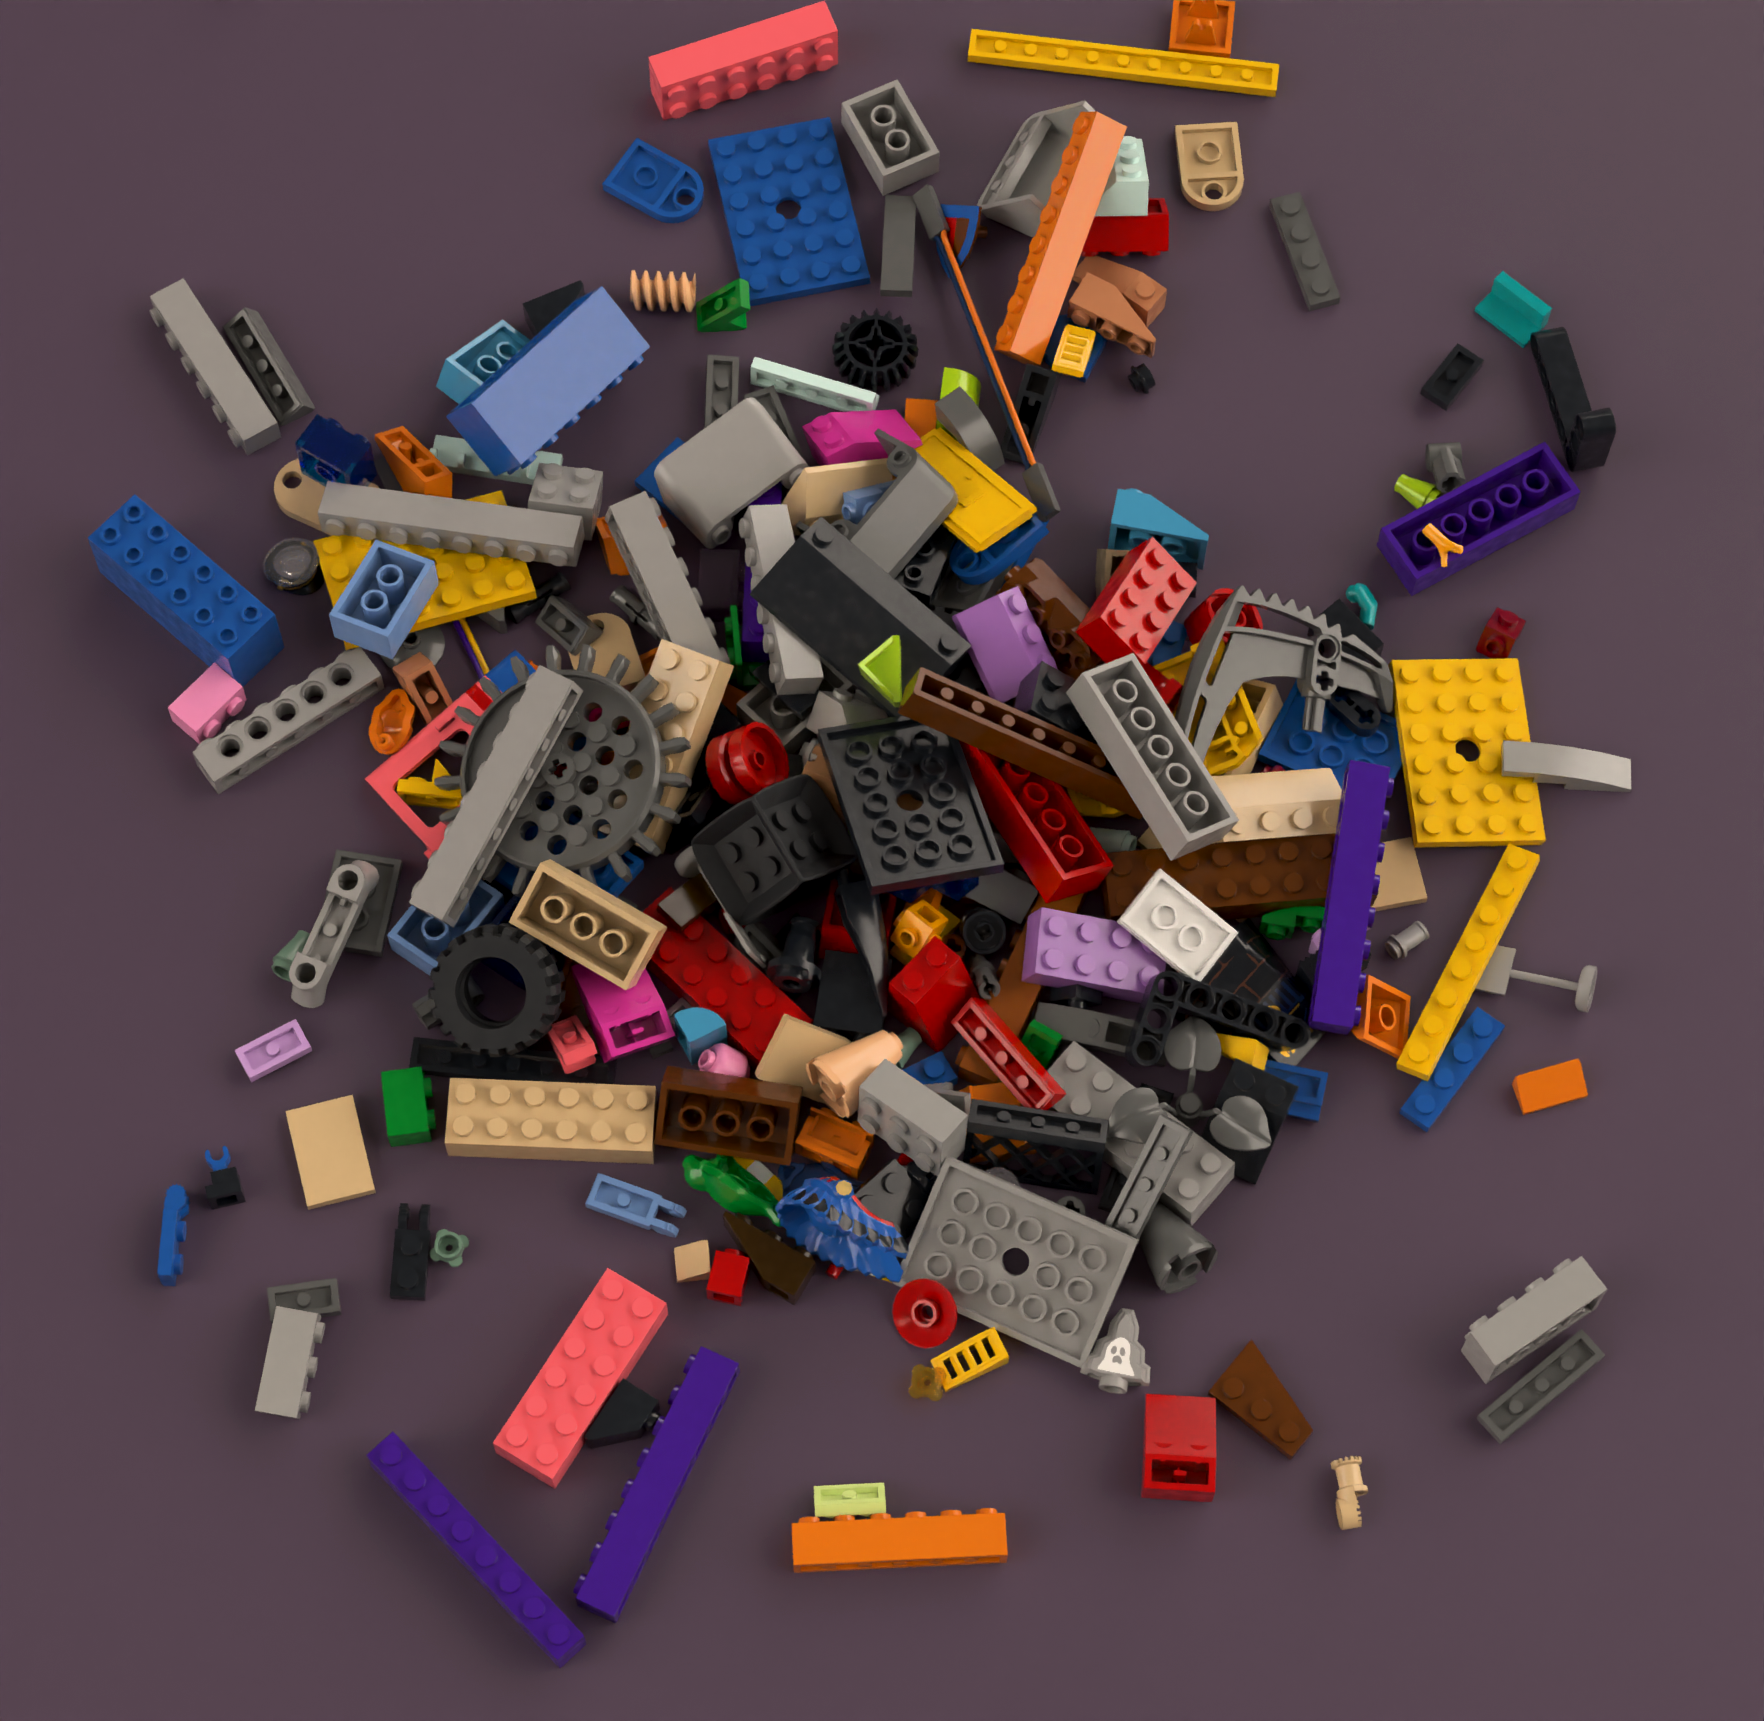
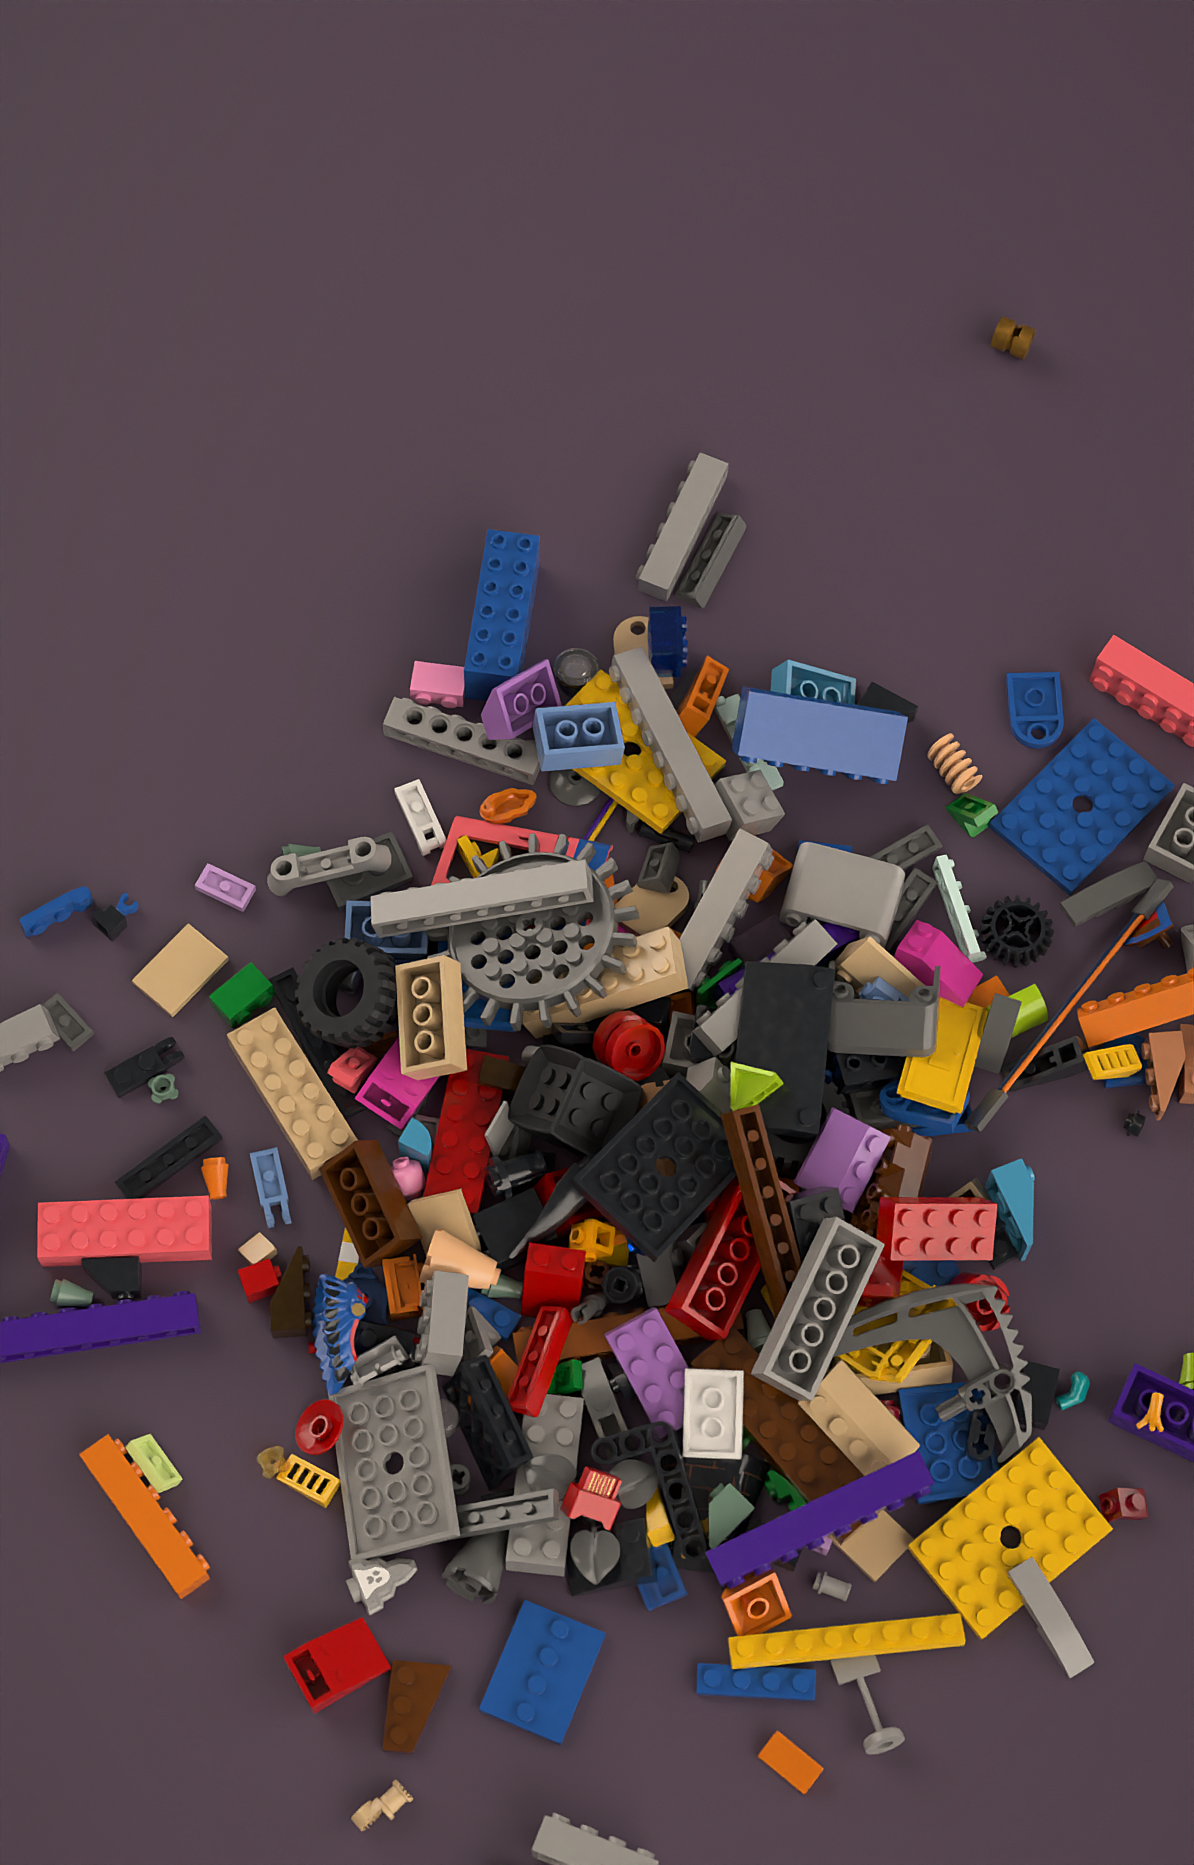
camera: 55 degrees right, 0 degrees up
(303, 634) = (514, 702): none -> medium lavender slope
(340, 813) = (420, 816): none -> white plate
(423, 686) = (546, 806): nougat slope -> none
(533, 1289) = (169, 1159): none -> black plate
(585, 1253) = (215, 1175): none -> orange cone
(609, 1475) = (69, 1294): none -> sand green cone
(730, 1186) = (326, 1238): green animal -> none
(902, 1199) = (378, 1360): none -> light grey hinge
(1188, 1088) = (593, 1497): none -> piece
(1279, 982) = (725, 1513): none -> sand green slope
(1313, 1259) = (542, 1672): none -> blue plate

